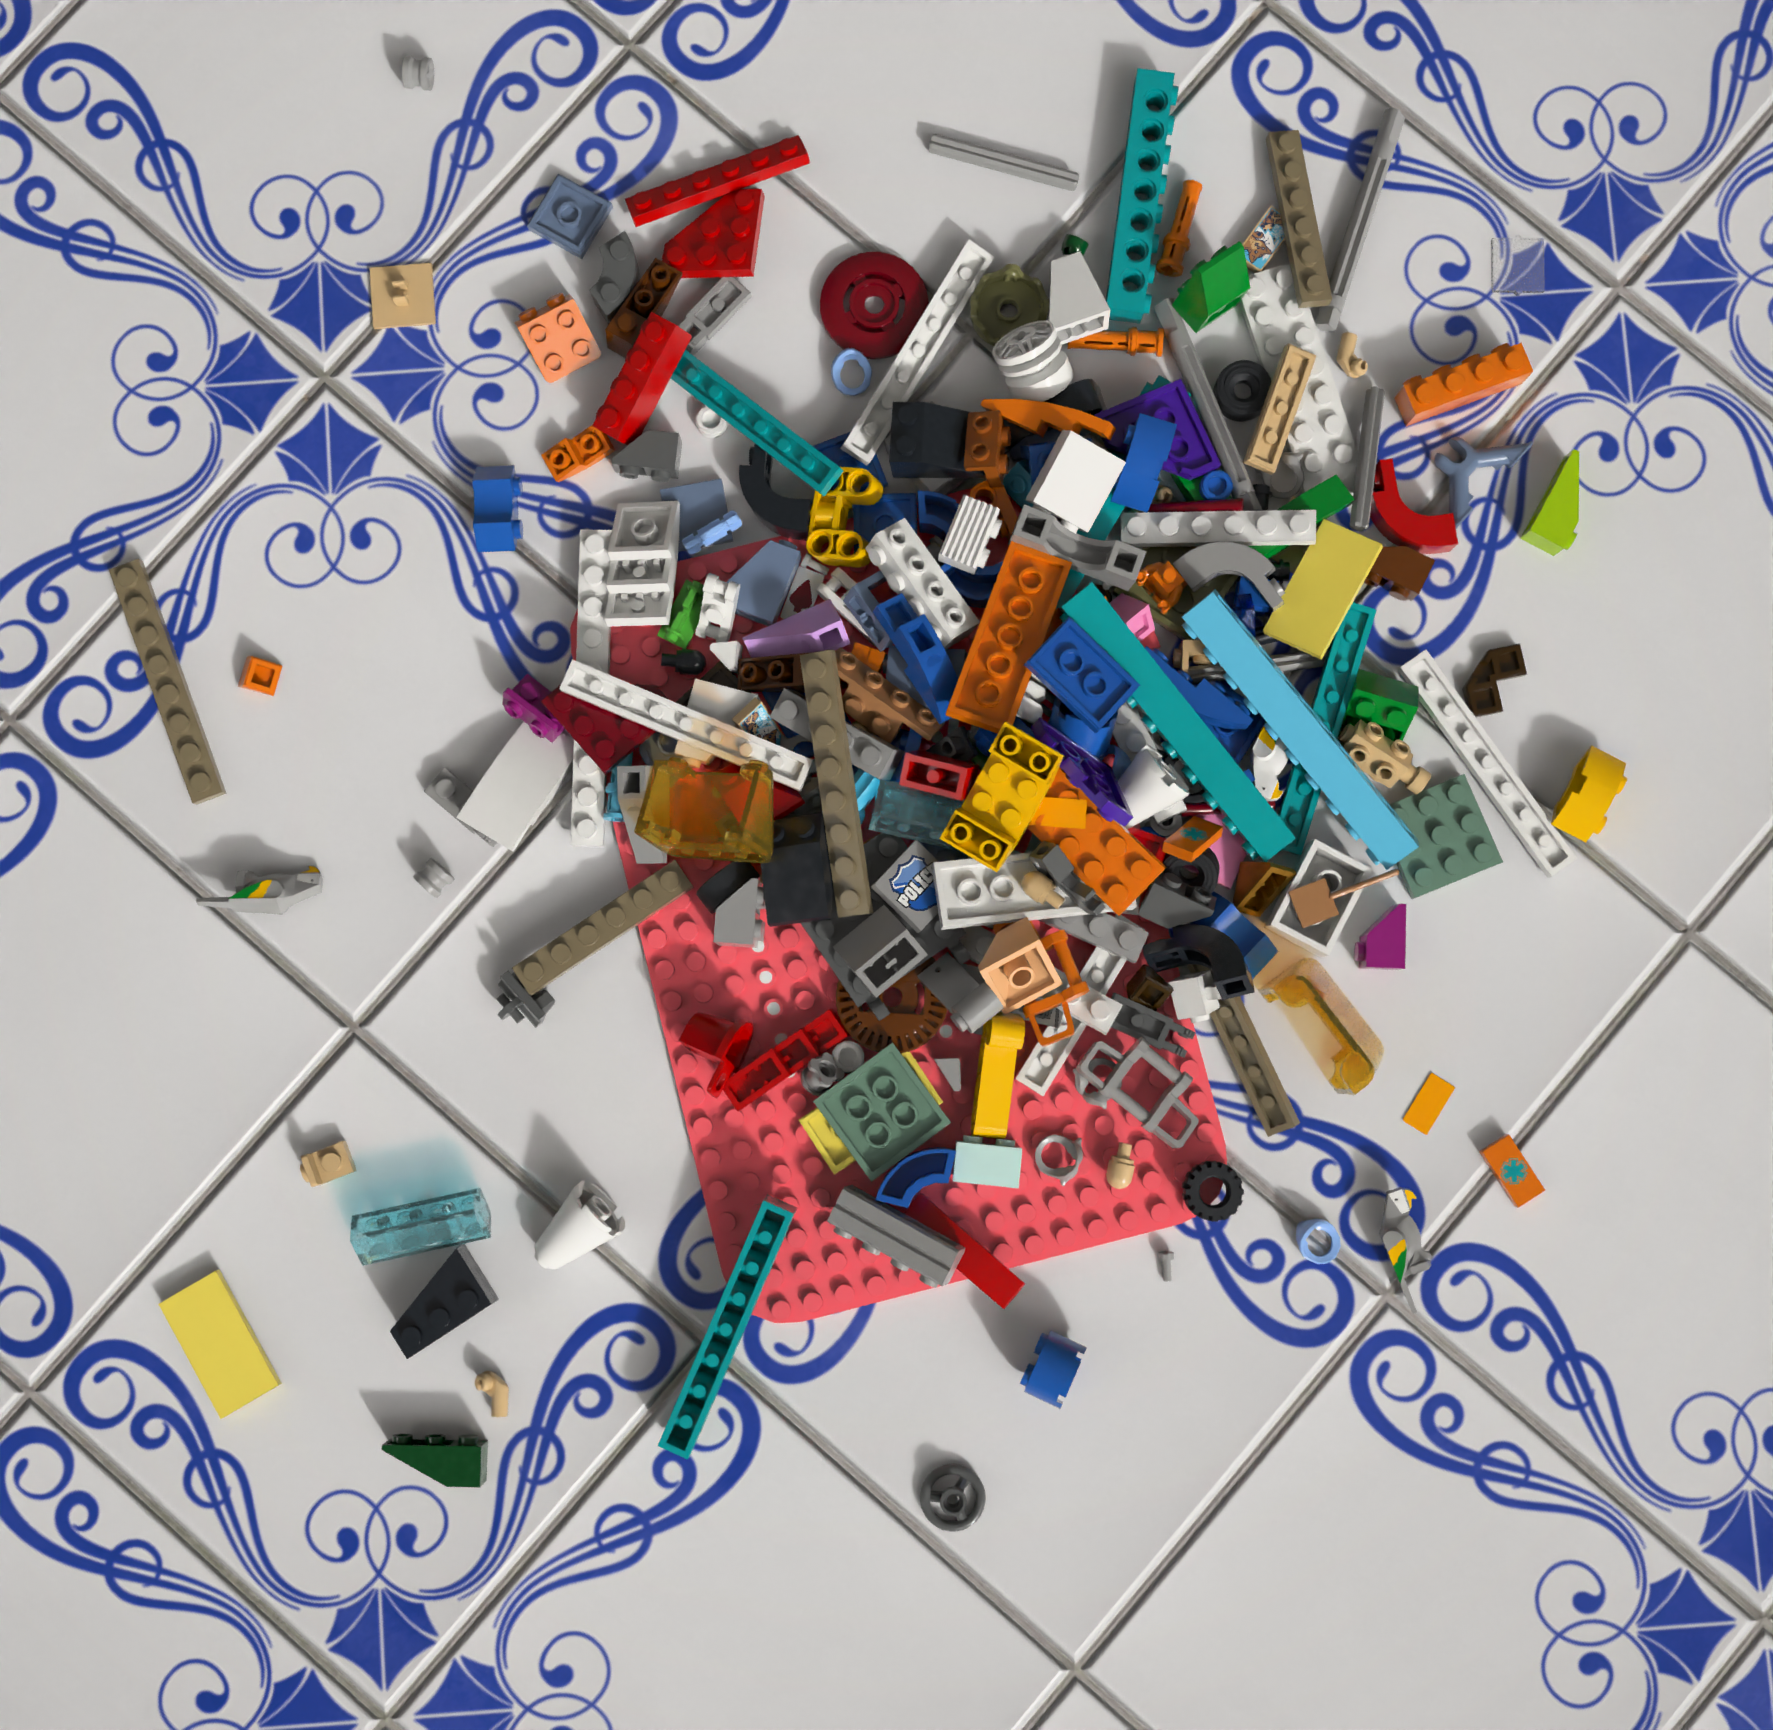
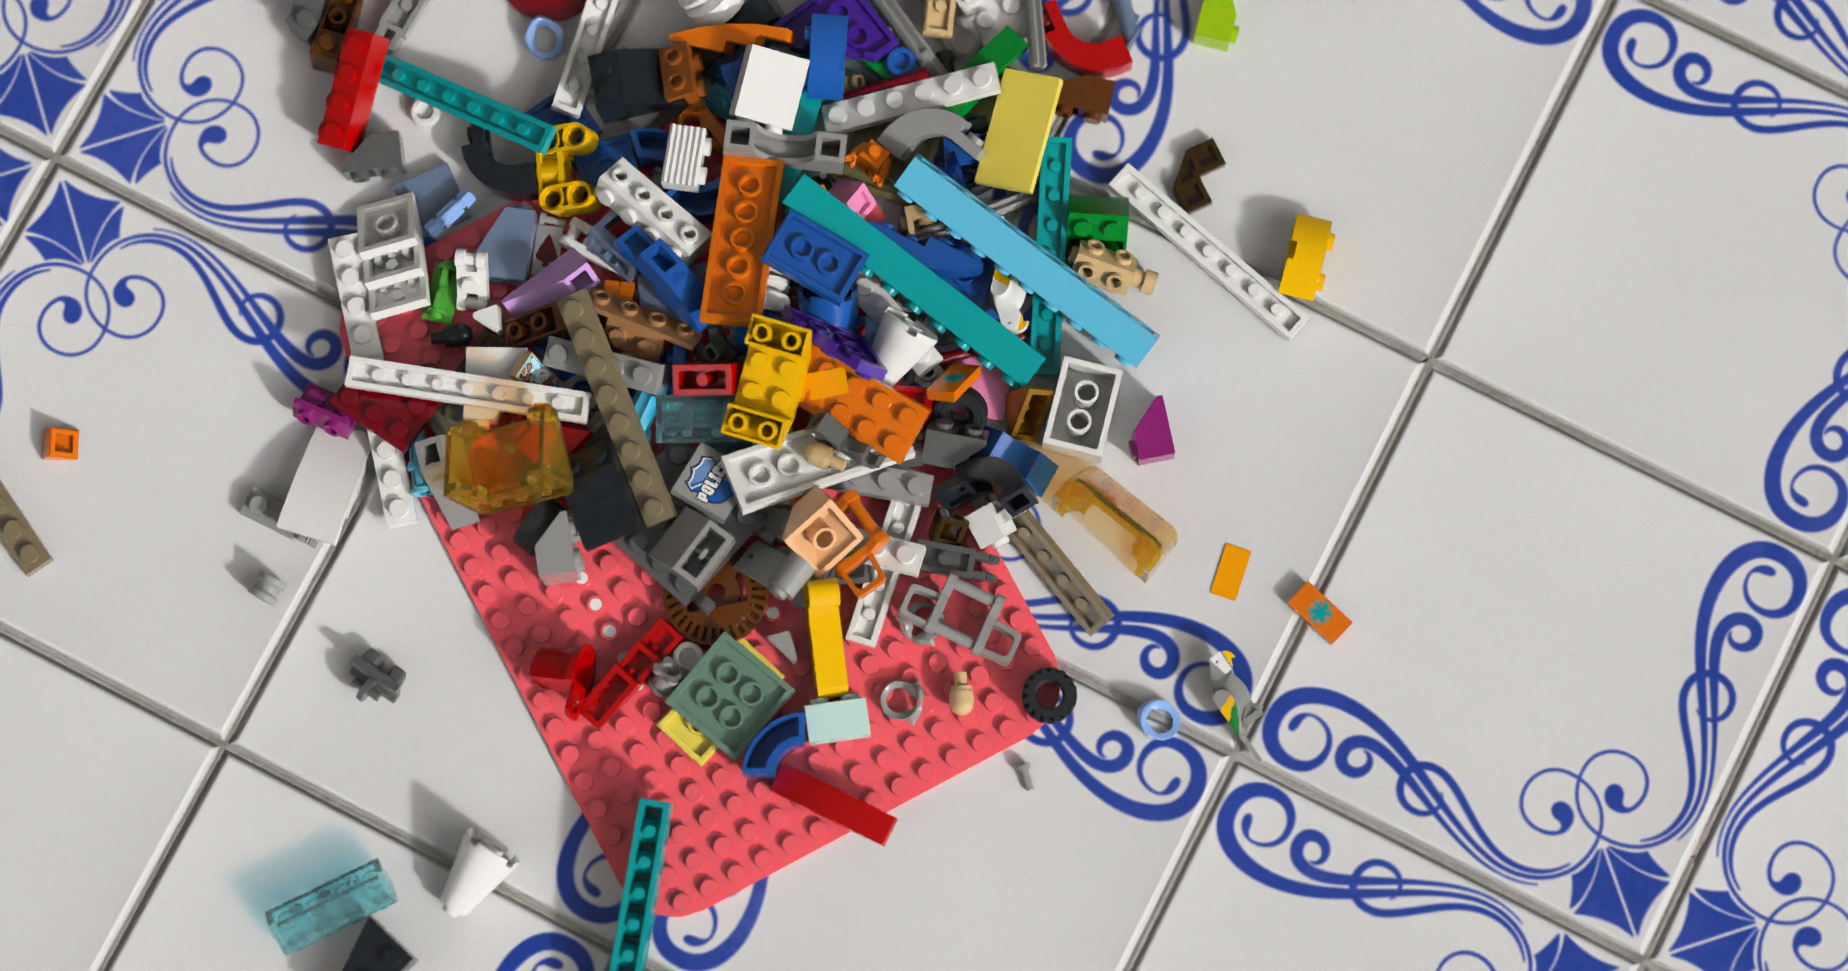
camera: 15 degrees left, 5 degrees down
(268, 892) = (116, 639): light grey animal -> none
(327, 1164) = (230, 874): tan bracket -> none
(402, 296) = (111, 66): tan piece -> none
(496, 508) = (246, 239): blue brick -> none
(558, 337) = (265, 69): orange bracket -> none
(578, 453) = (309, 171): orange slope -> none
(602, 927) = (434, 594): dark tan plate -> none
(895, 1235) = (768, 803): light grey brick -> none
(1053, 1369) = (942, 890): blue brick -> none
(1316, 902) = (1078, 412): medium nougat piece -> none
(1449, 834) = (1190, 328): sand green plate -> none

